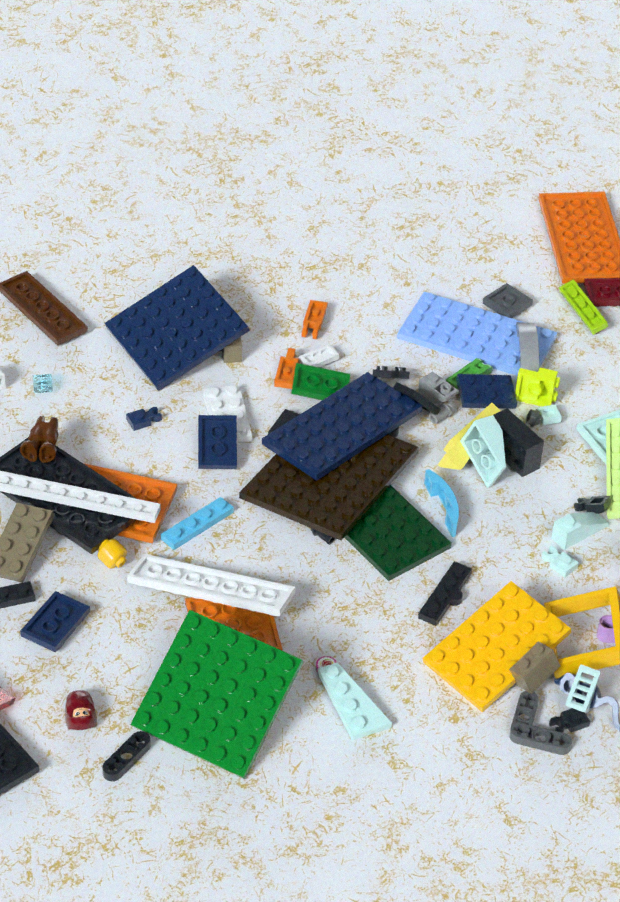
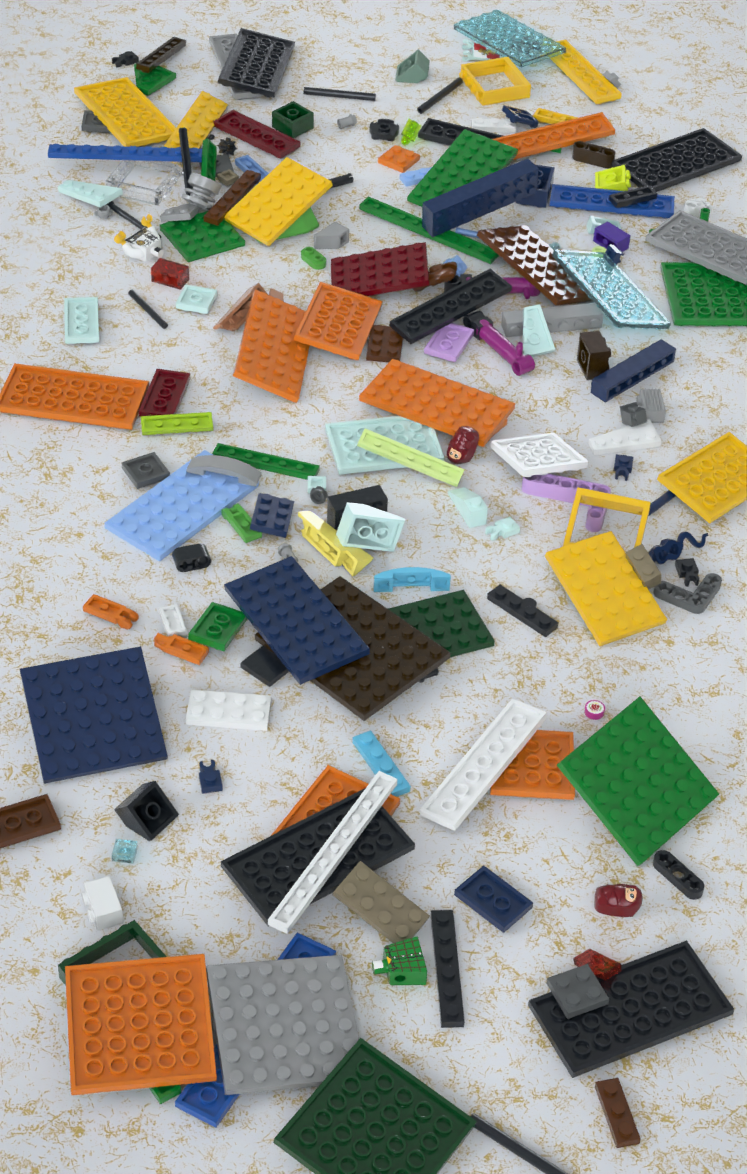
camera: 75 degrees left, 0 degrees up
(44, 435) = (239, 848): reddish brown piece -> none
(87, 386) = (147, 810): none -> black slope
(112, 553) = (417, 832): yellow head -> none
(217, 441) = (279, 720): dark blue plate -> none
(354, 707) = (660, 697): light aqua wing -> none
(399, 372) = (224, 572): black plate -> none
(404, 352) = (191, 557): none -> black beam
(417, 397) = (290, 551): black tile -> none
(436, 388) = (261, 547): light grey slope -> none
(537, 387) = (288, 476): neon yellow plate -> none
(568, 383) = (268, 462): none -> green tile
(570, 700) = (677, 556): light aqua slope -> none
(595, 504) = (445, 485): black plate -> none

